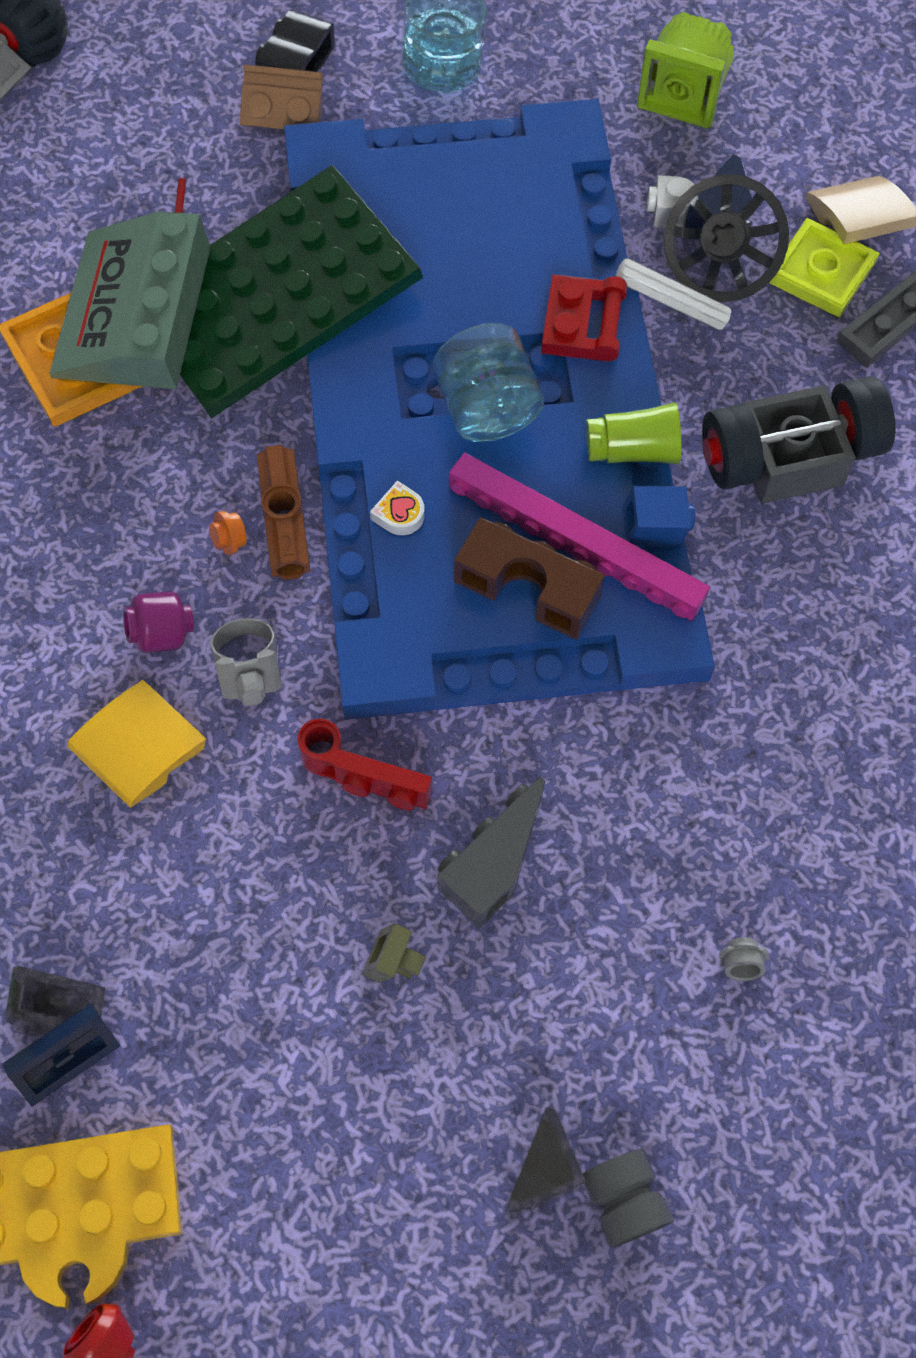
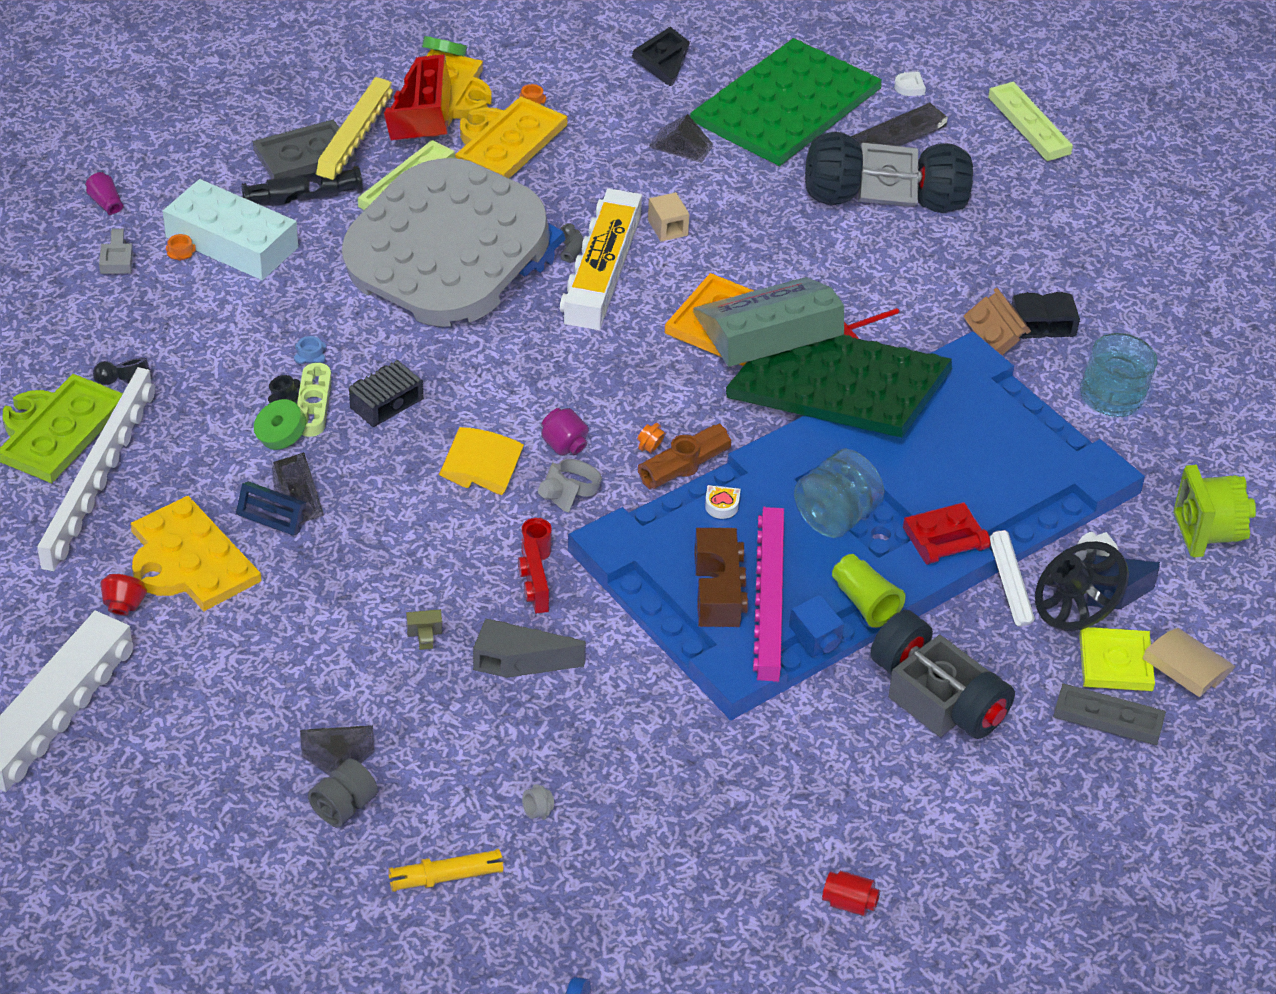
camera: 60 degrees right, 20 degrees down
(798, 1142) = (445, 870): none -> yellow pin

